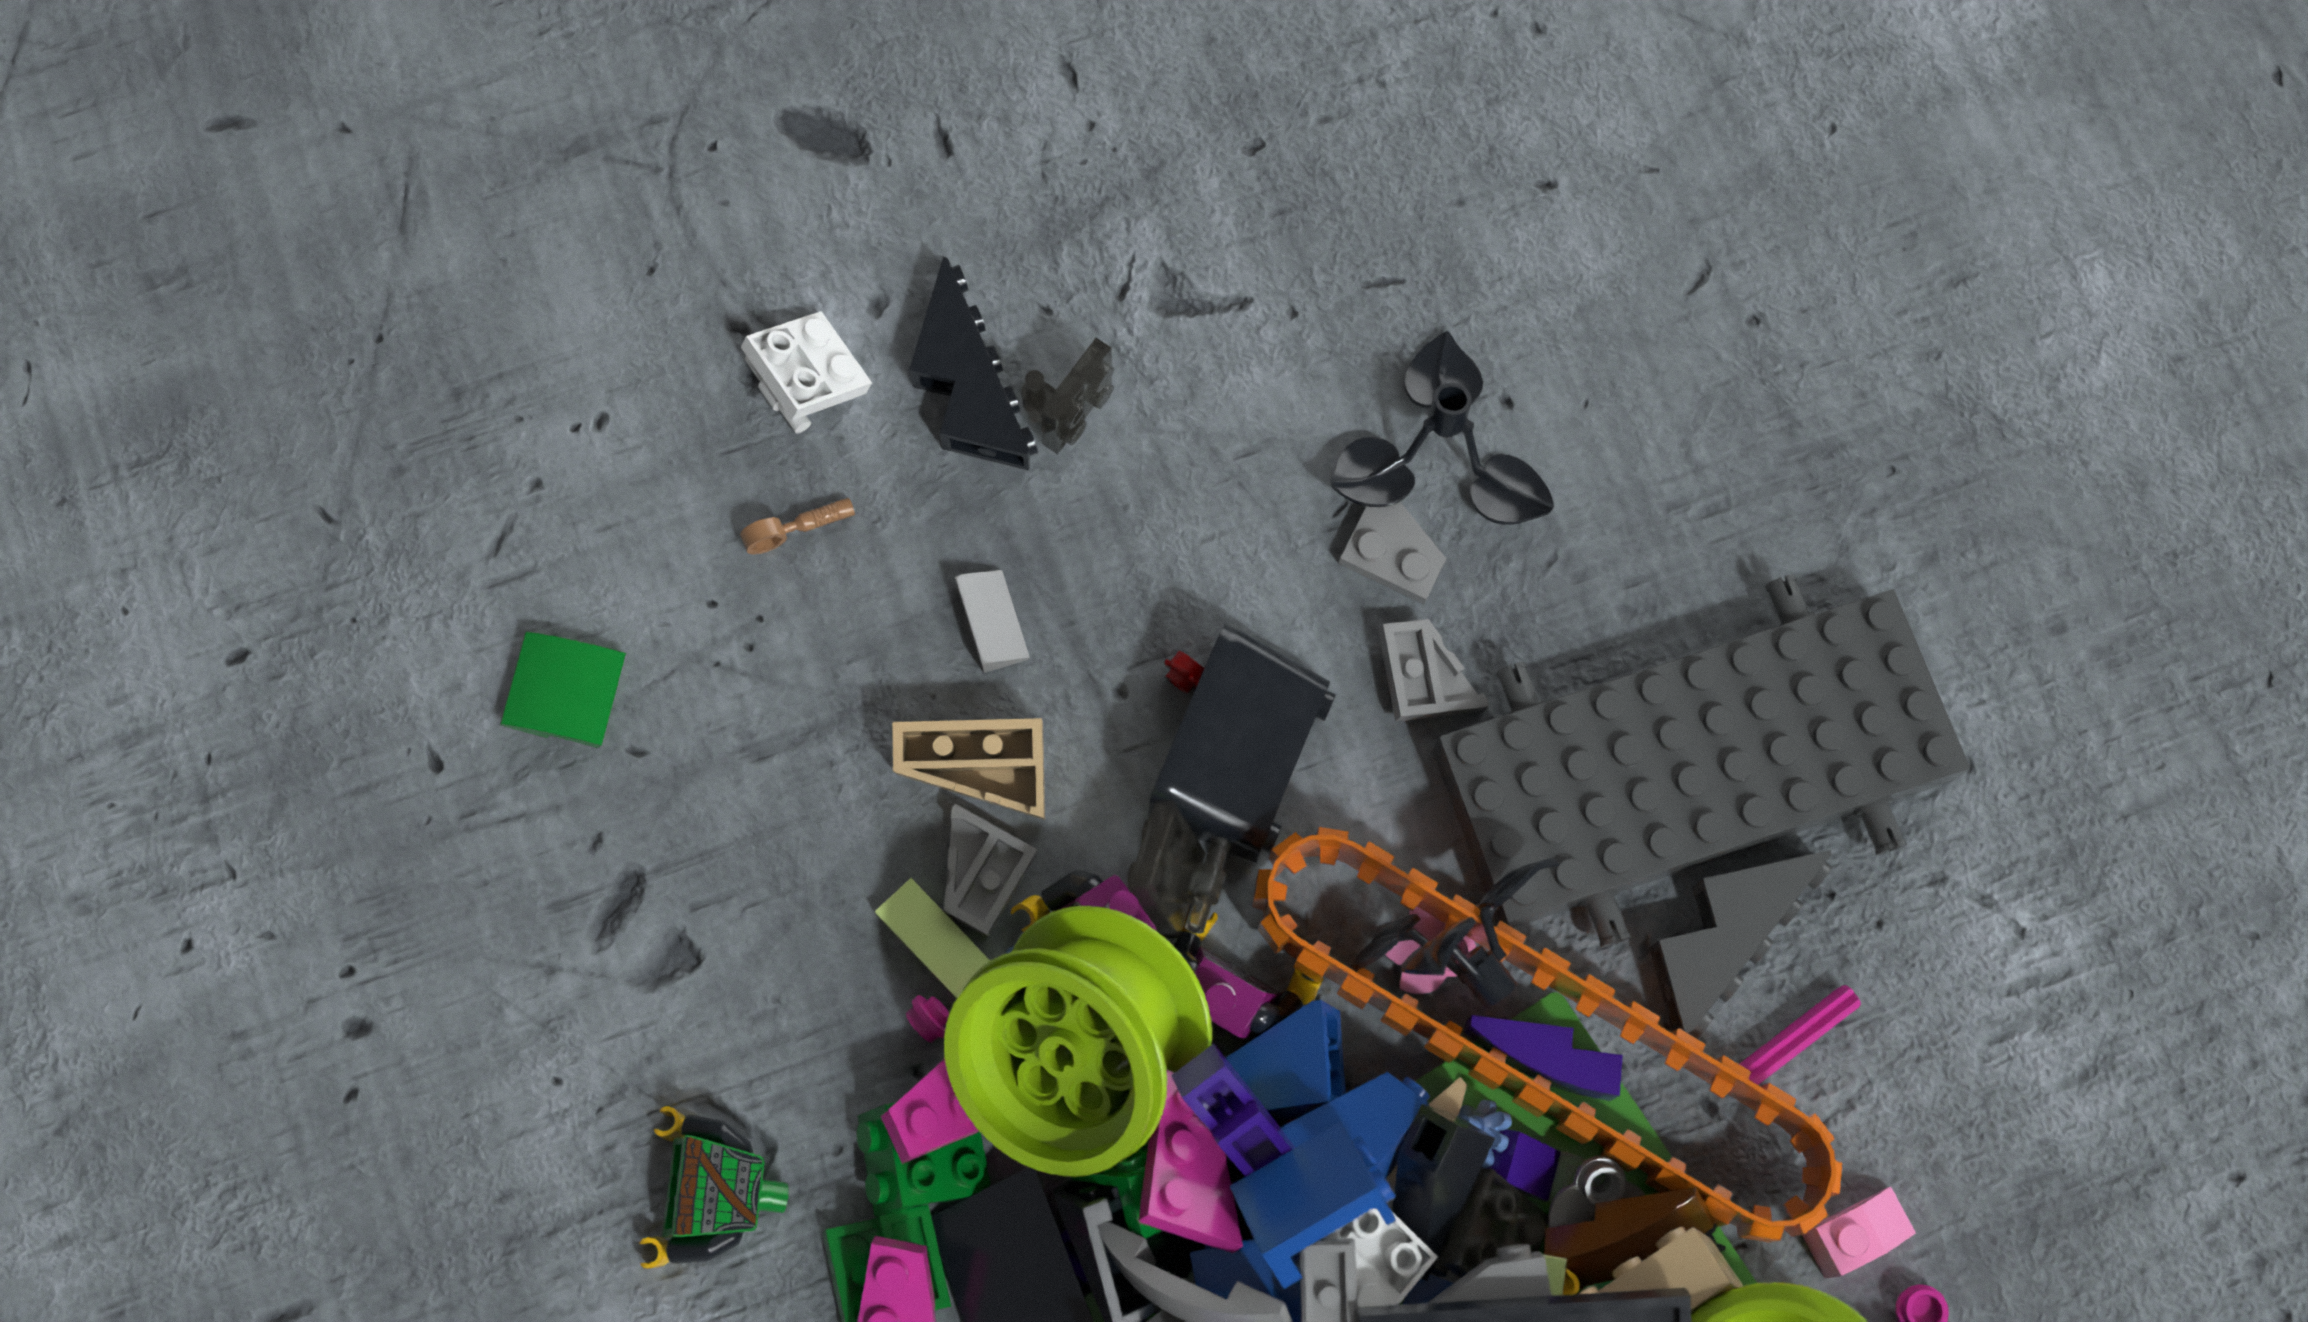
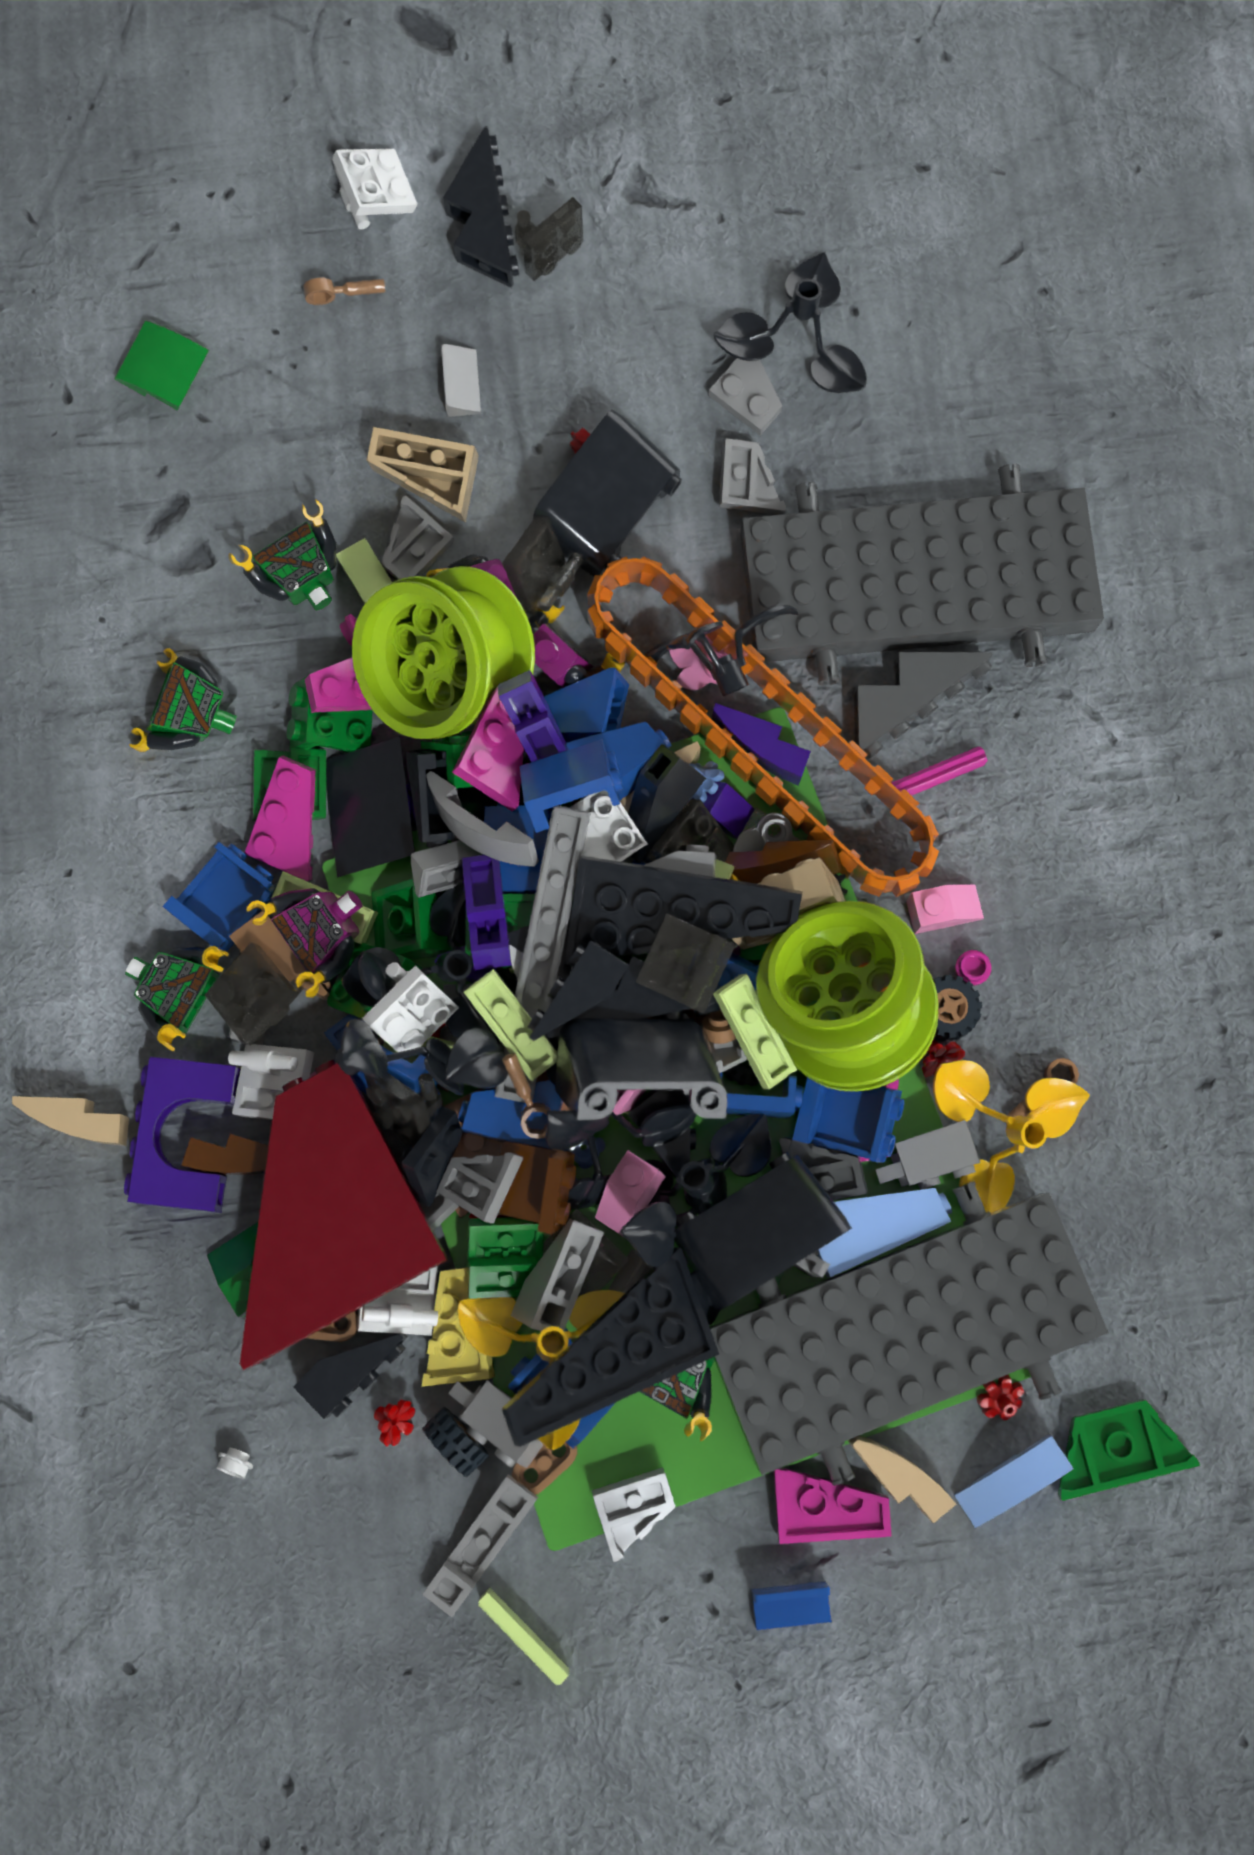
camera: 15 degrees right, 5 degrees up
(822, 940) = (295, 564): none -> torso

